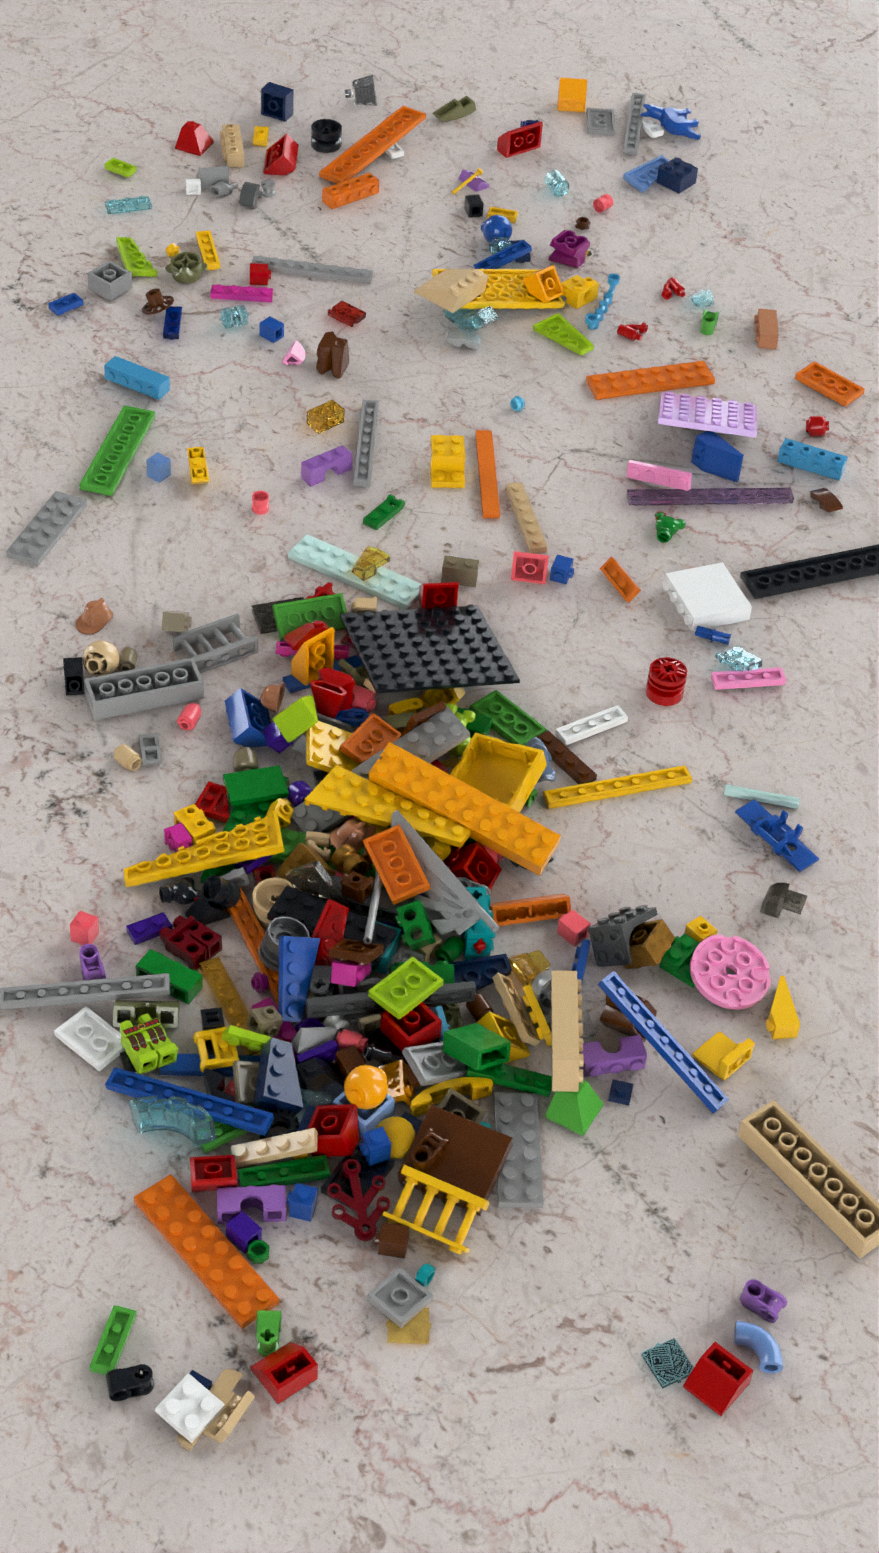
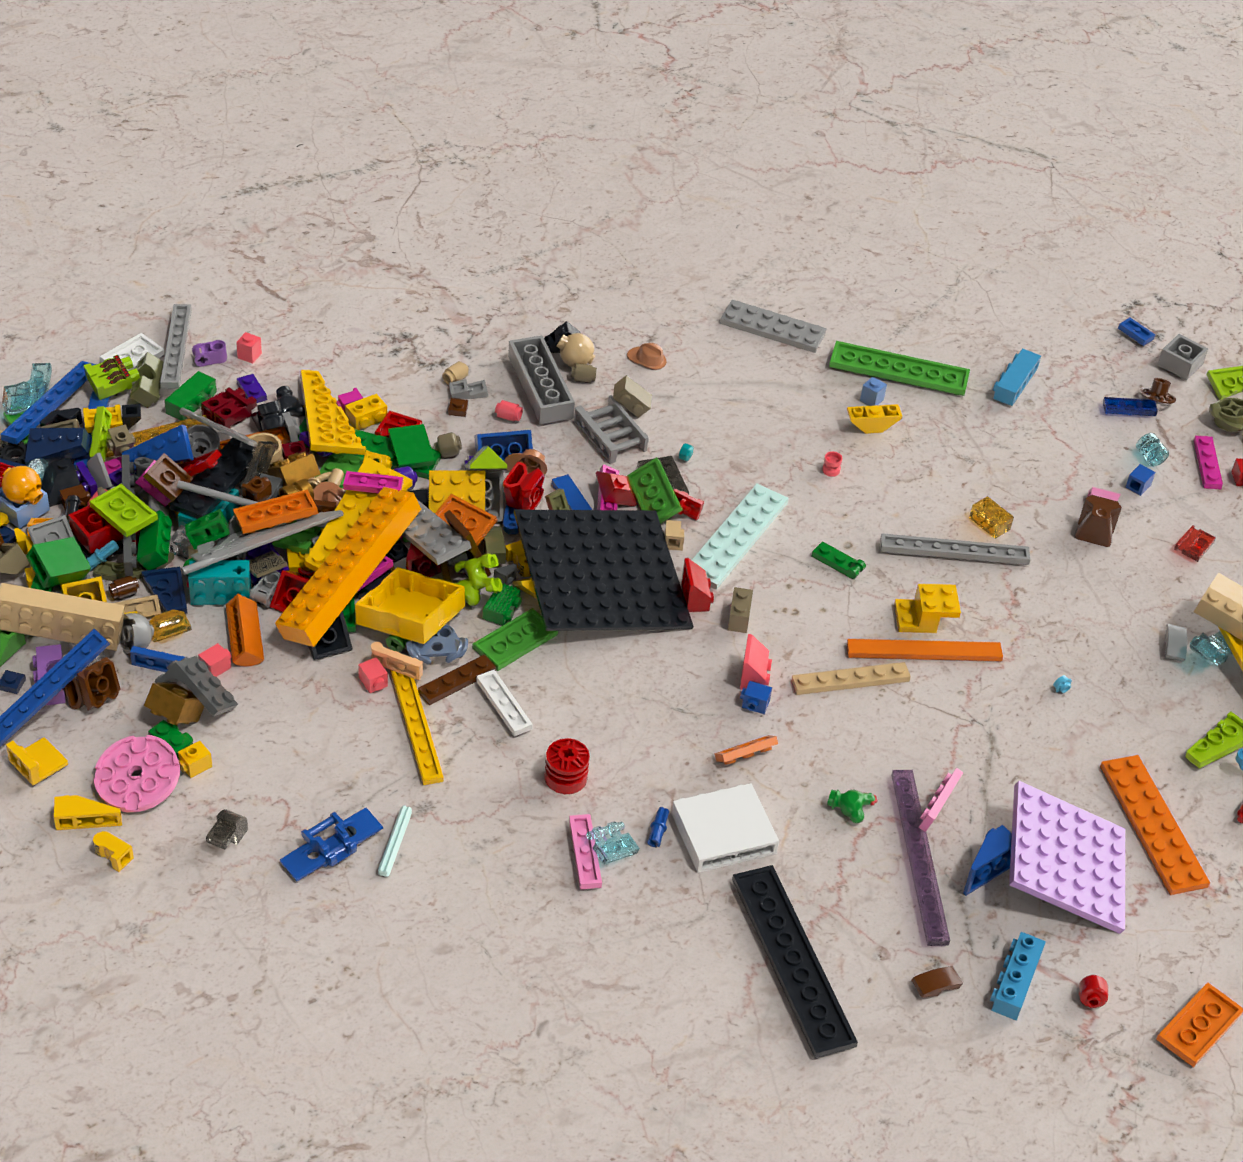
camera: 90 degrees right, 0 degrees up
(178, 759) = (458, 407): none -> reddish brown plate
(247, 595) = (686, 452): none -> teal tile
(268, 912) = (189, 414): none -> light grey animal
(314, 656) = (575, 480): light orange slope -> none
(315, 468) = (912, 520): medium lavender arch -> none
(356, 785) = (370, 482): none -> dark pink plate
(369, 562) = (738, 535): clear yellow slope -> none
(560, 791) = (397, 662): none -> light nougat plate
(574, 812) = (373, 675): none -> coral brick
(819, 981) = (113, 848): none -> yellow leg

